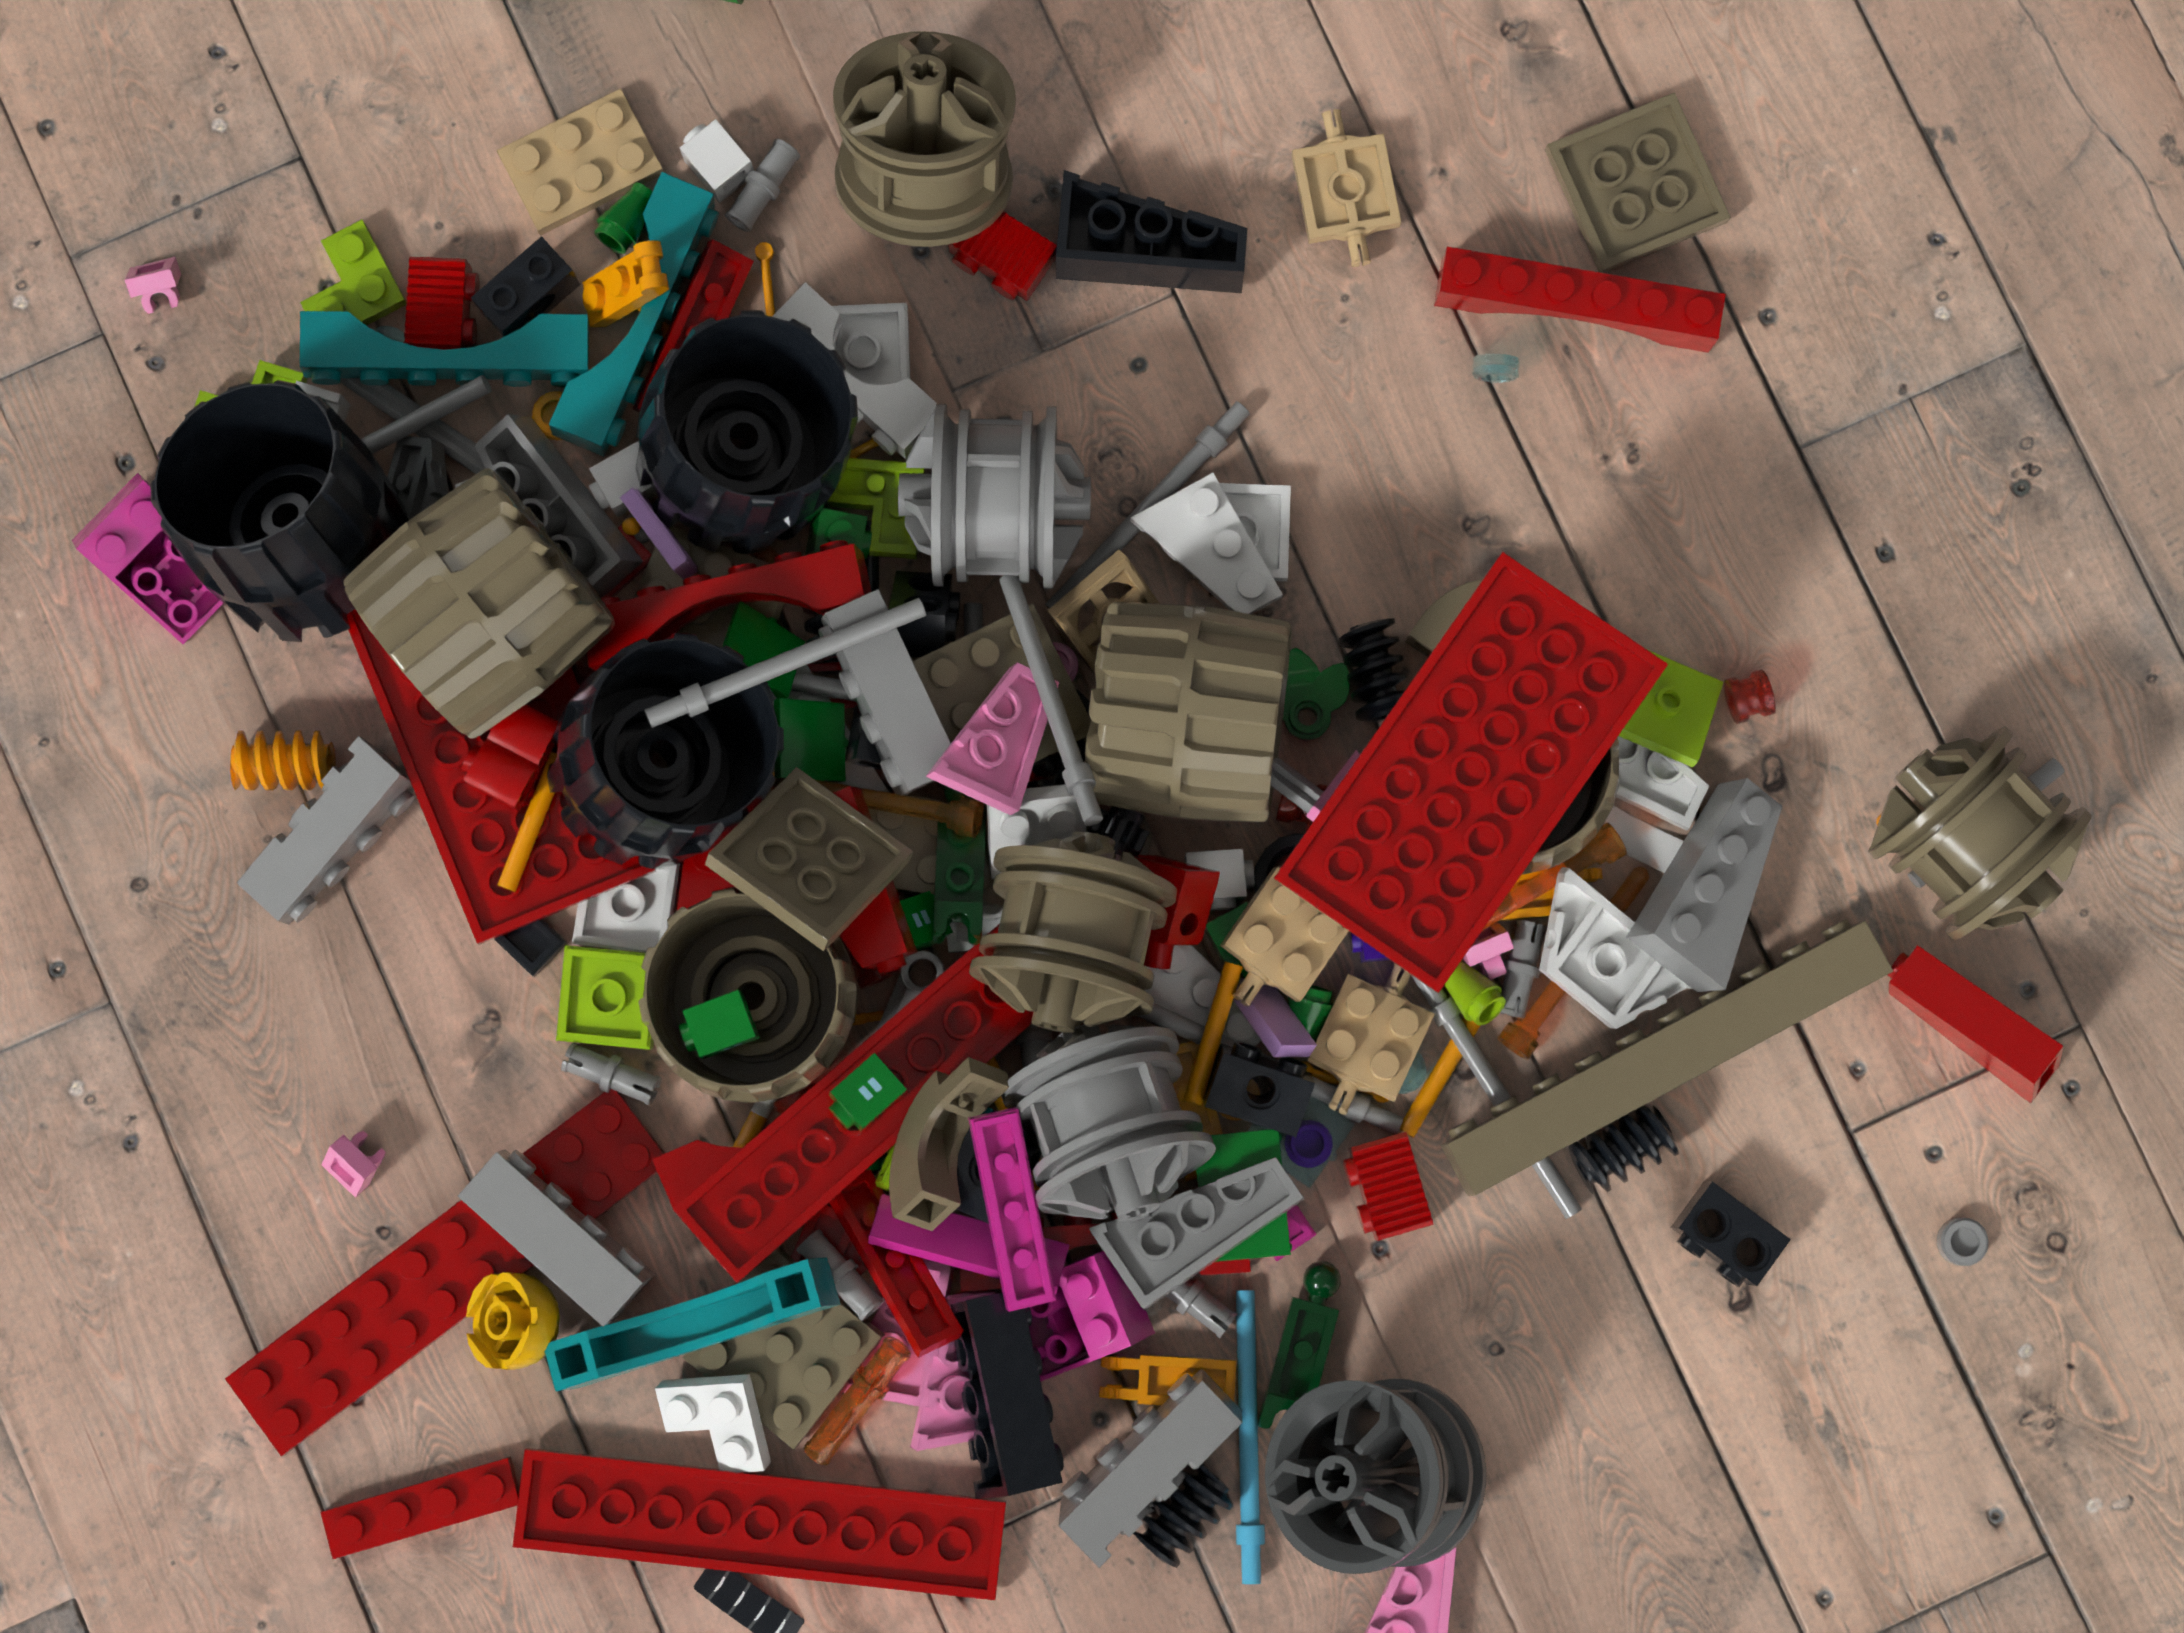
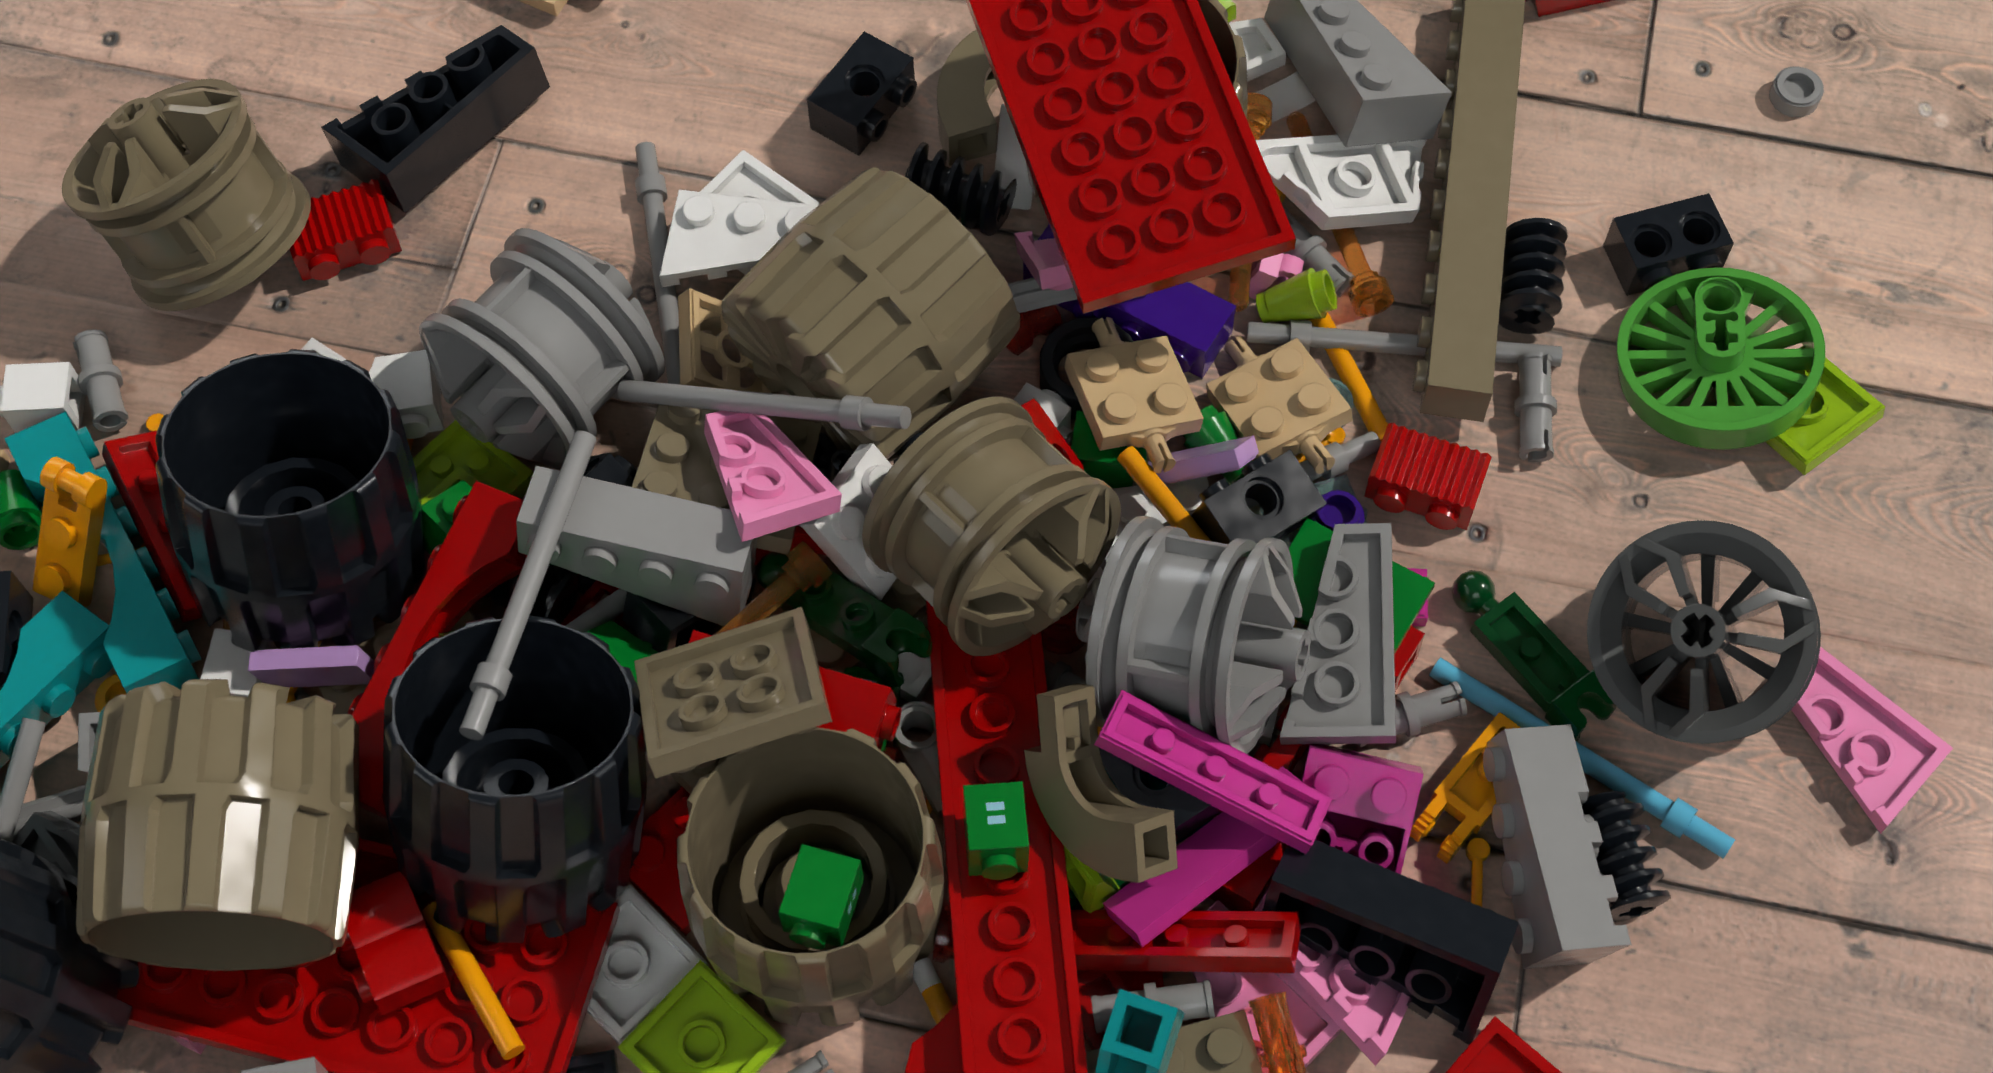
camera: 50 degrees left, 20 degrees down
(1126, 1411) = (1477, 852): none -> light orange hinge
(1432, 518) = (838, 102): none -> black brick
(1511, 1225) = (1535, 407): none -> light grey pin
(1590, 1373) = (1721, 354): none -> bright green piece
(1659, 1424) = (1833, 419): none -> lime plate

